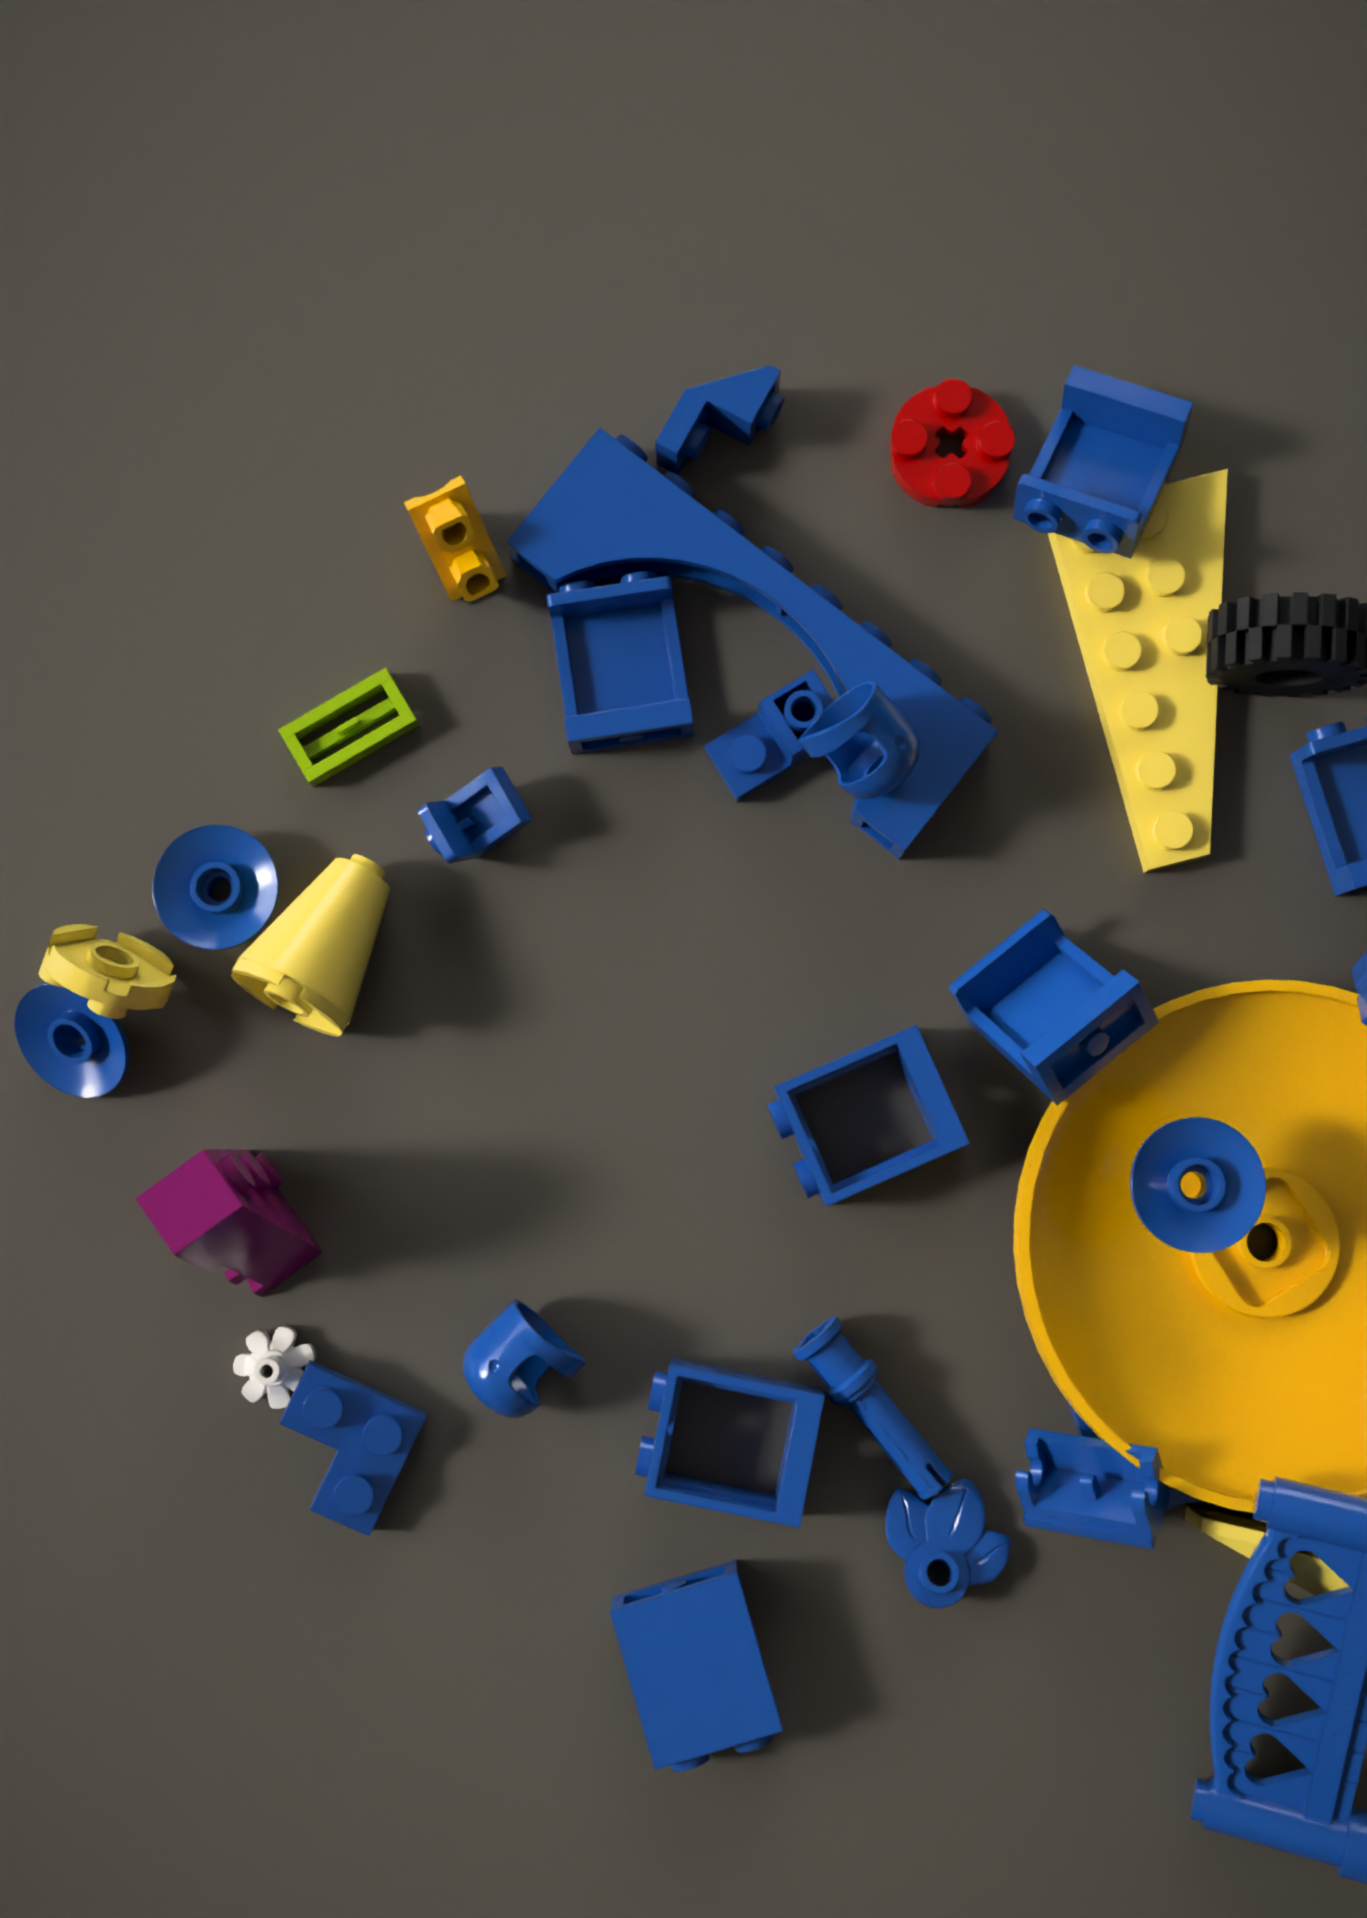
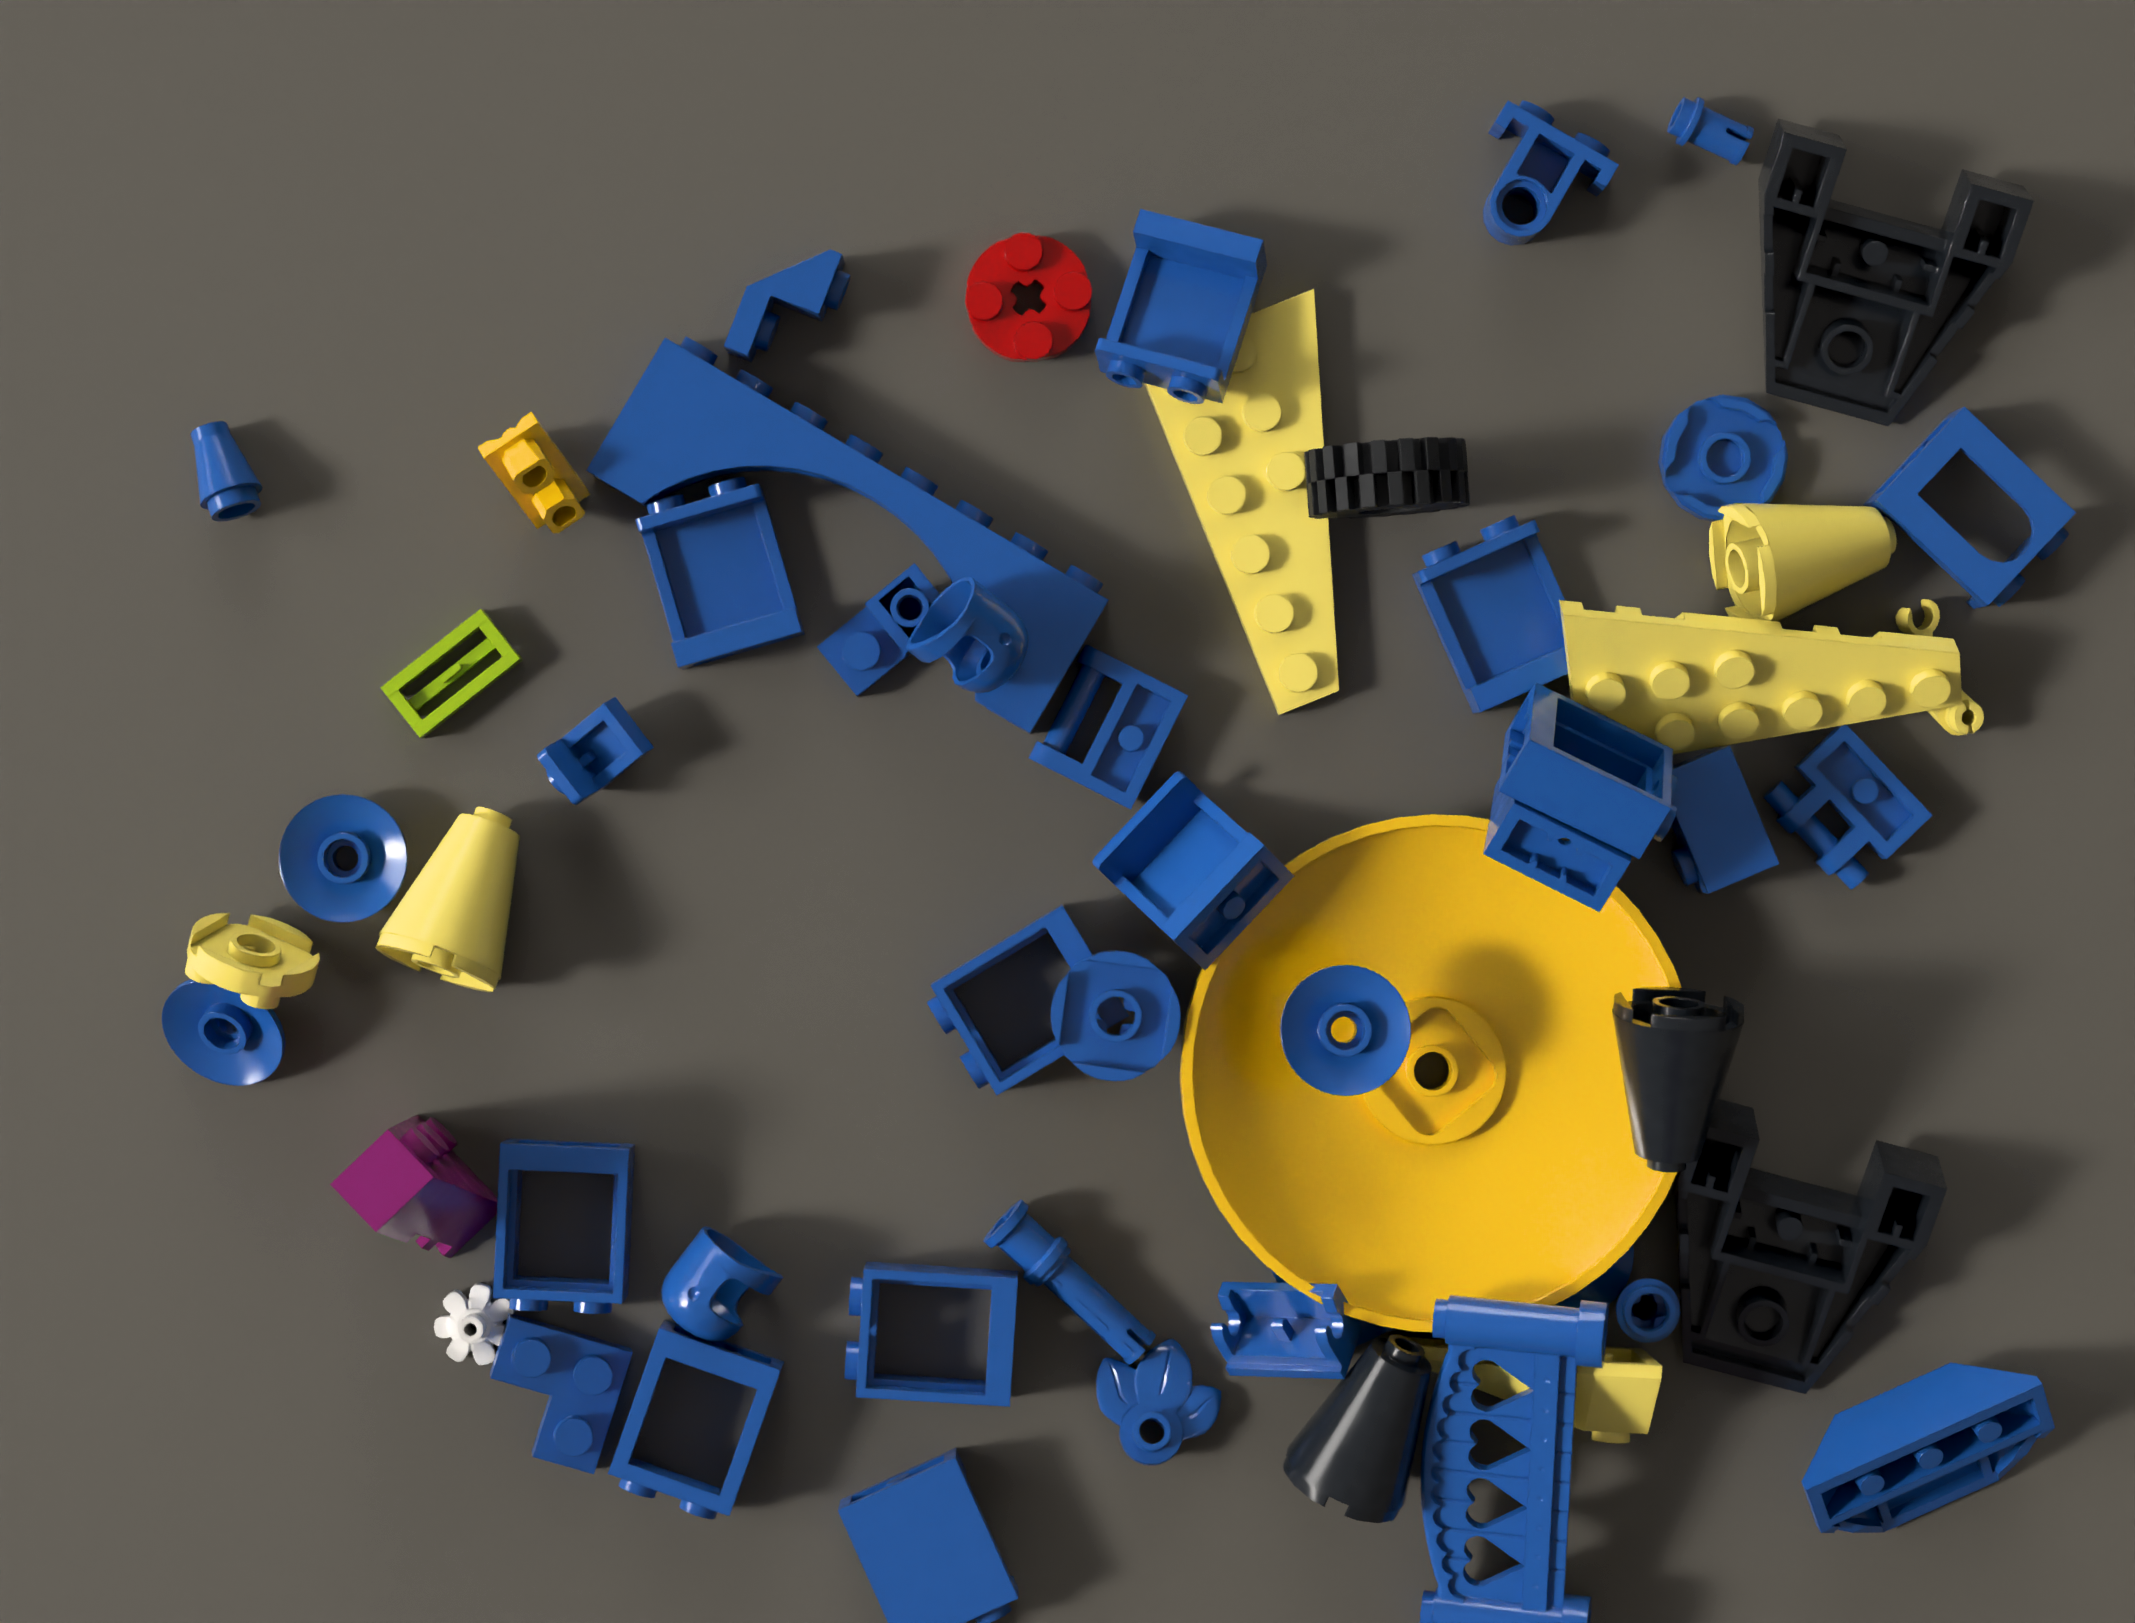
camera: 10 degrees left, 5 degrees up
(161, 513) = (223, 474): none -> blue cone
(336, 1342) = (534, 1292): none -> blue window
(509, 1435) = (716, 1358): none -> blue window
(990, 1119) = (1138, 1044): none -> blue plate
(997, 871) = (1126, 740): none -> blue plate
(1164, 1608) = (1365, 1433): none -> black cone

